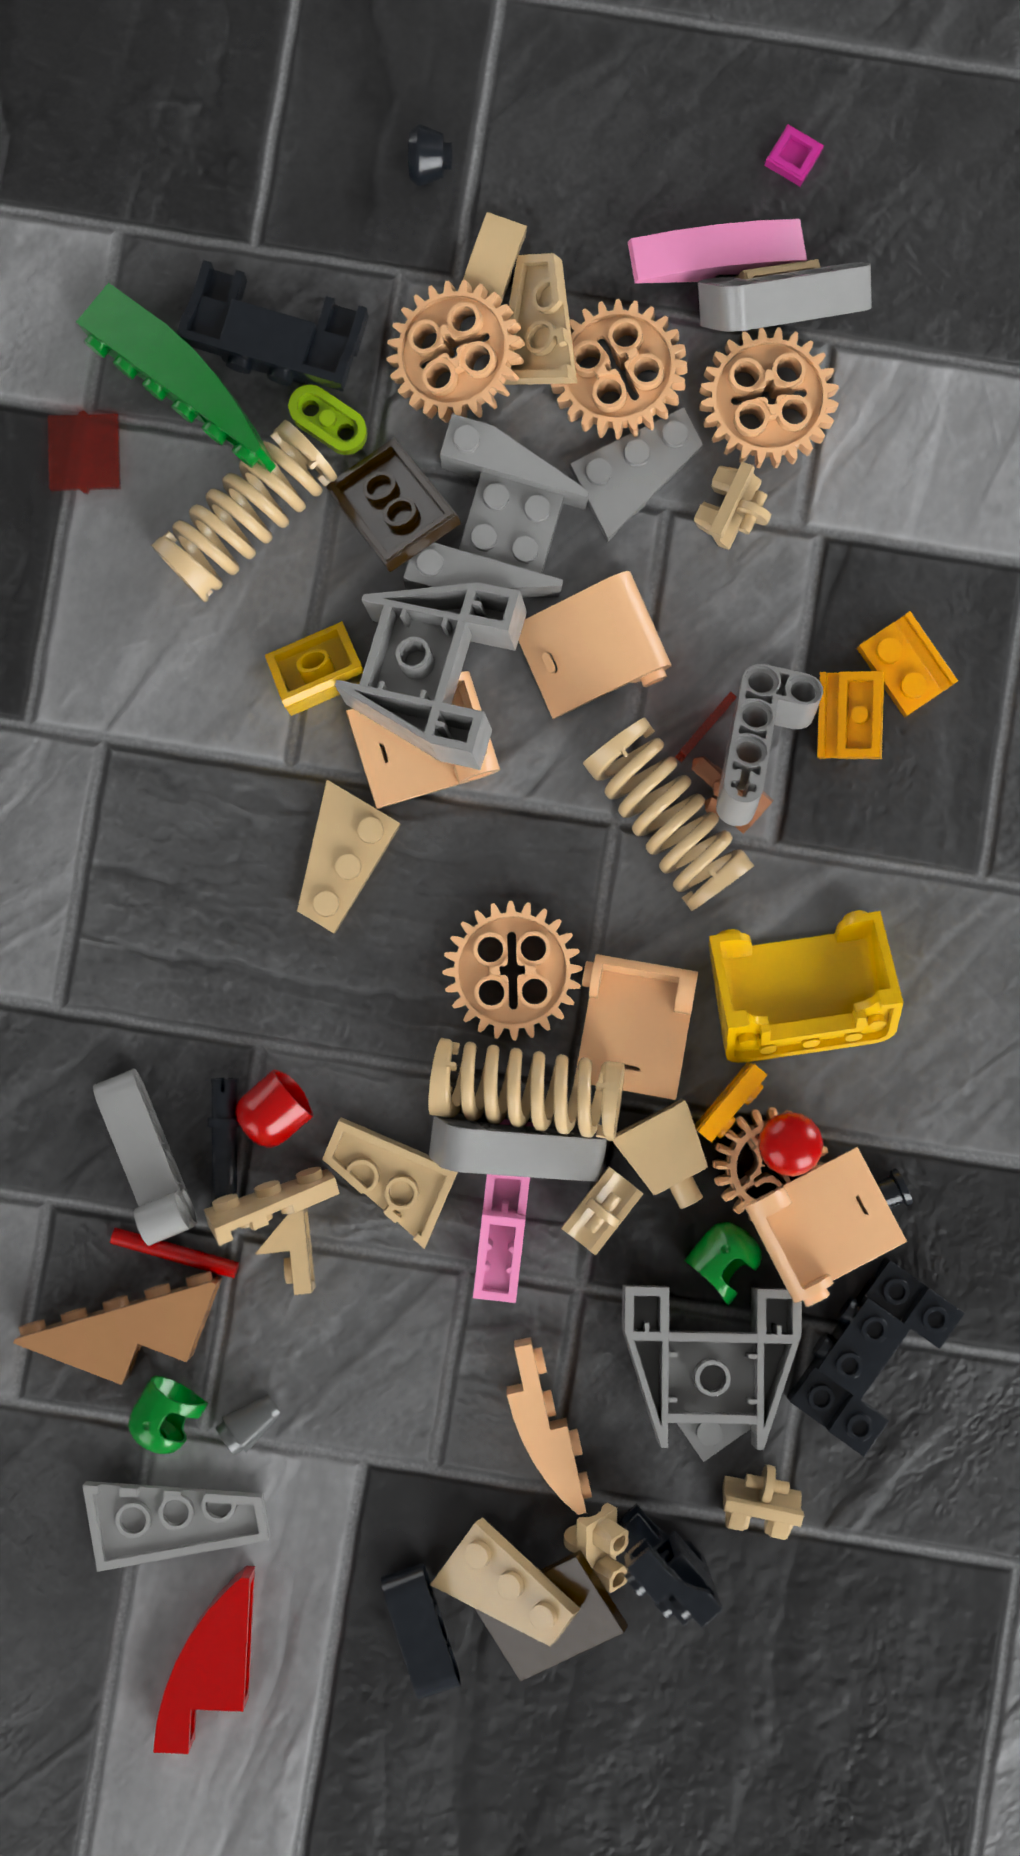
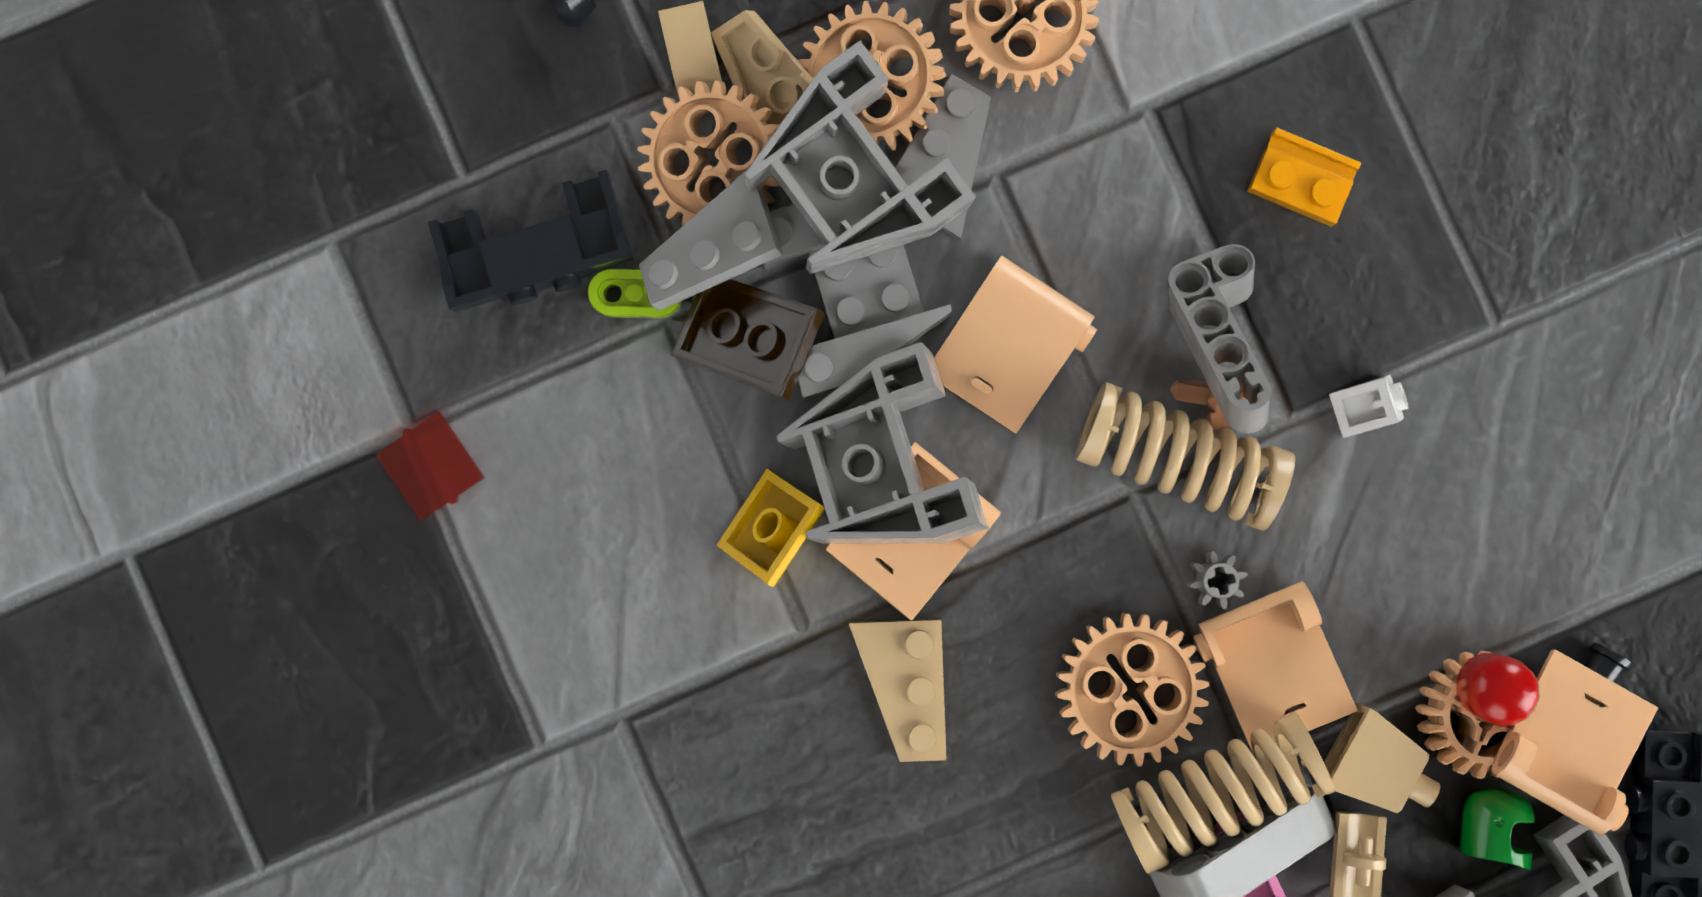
camera: 30 degrees left, 0 degrees up
(171, 370) = (466, 342): green slope -> none
(295, 456) = (629, 351): tan piece -> none
(411, 417) = (713, 246): none -> light grey wing
(540, 423) = (844, 177): none -> light grey wedge
(644, 924) = (1226, 588): none -> light grey gear
(705, 727) = (1165, 354): clear red piece -> none
(739, 508) = (1051, 115): tan hips -> none
(741, 1090) = (1409, 681): light orange plate -> none
(806, 990) = (1409, 531): yellow windscreen -> none
(840, 872) = (1369, 406): none -> white bracket
(851, 715) = (1286, 256): light orange plate -> none

